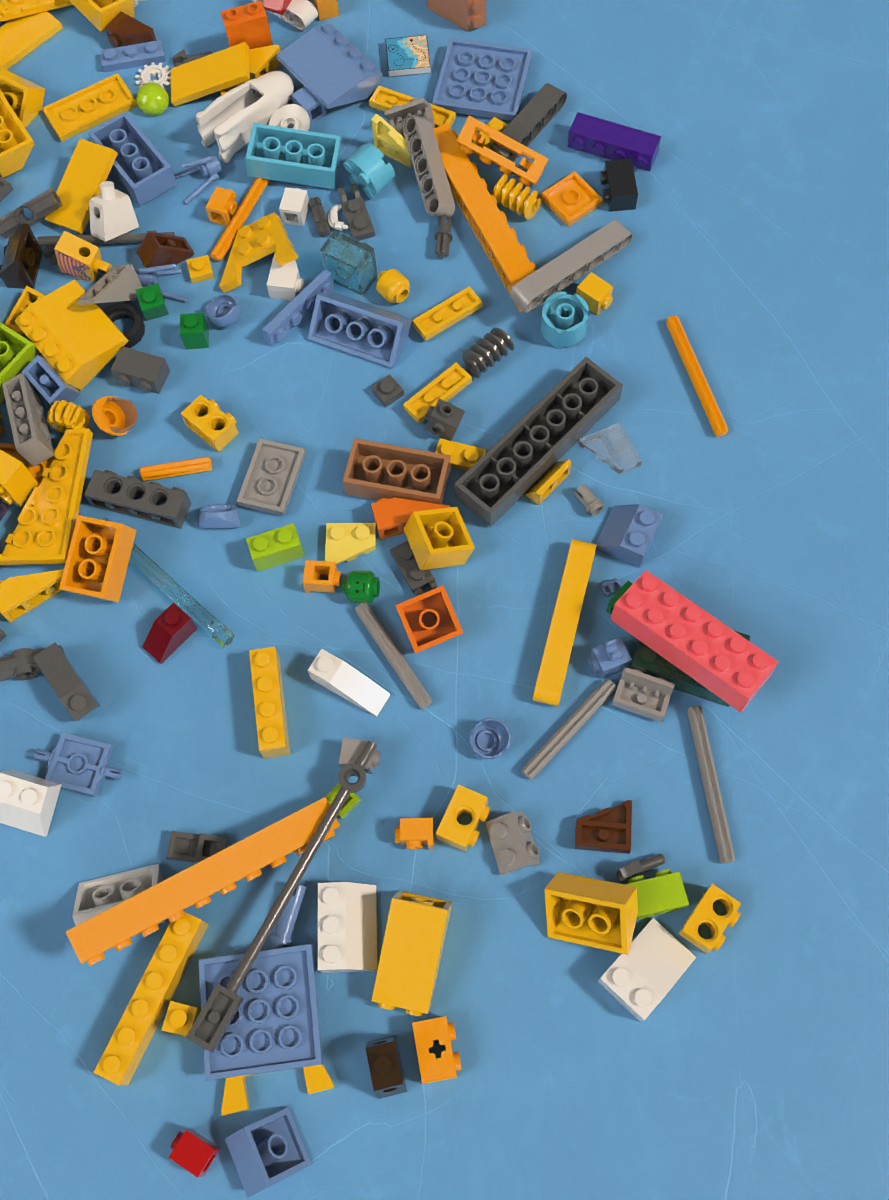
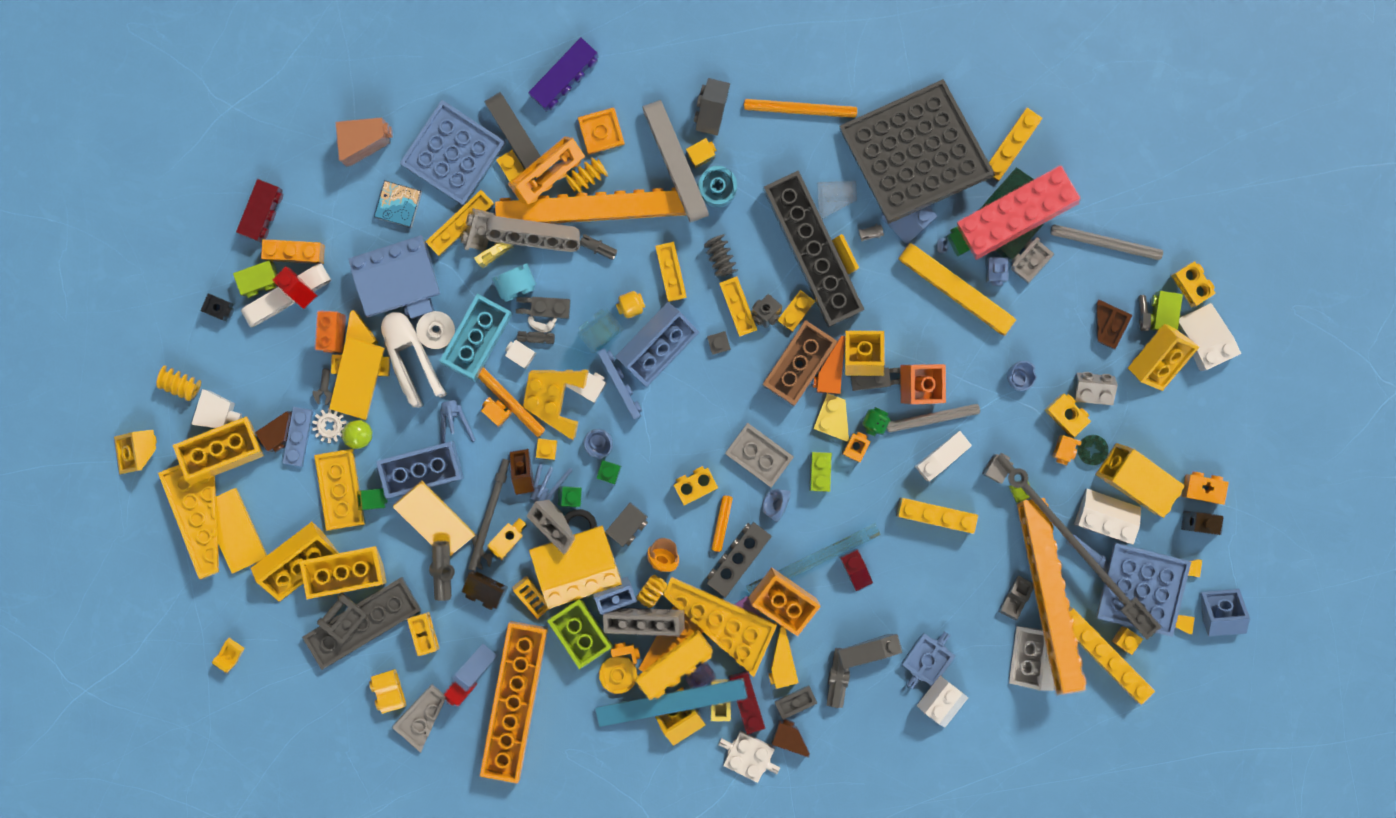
camera: 70 degrees left, 20 degrees up
(82, 124) = (371, 499): none -> green brick
(111, 213) = (477, 504): white torso -> none
(193, 1152) = (1207, 658): red brick -> none
(438, 862) = (1100, 445): none -> clear green gear
(568, 729) = (1033, 319): light grey axle -> none
(619, 184) = (608, 88): black brick -> none
(651, 278) = (712, 105): none -> dark grey brick
(709, 505) = (916, 151): none -> dark grey plate
(776, 620) = (1014, 142): none -> yellow plate

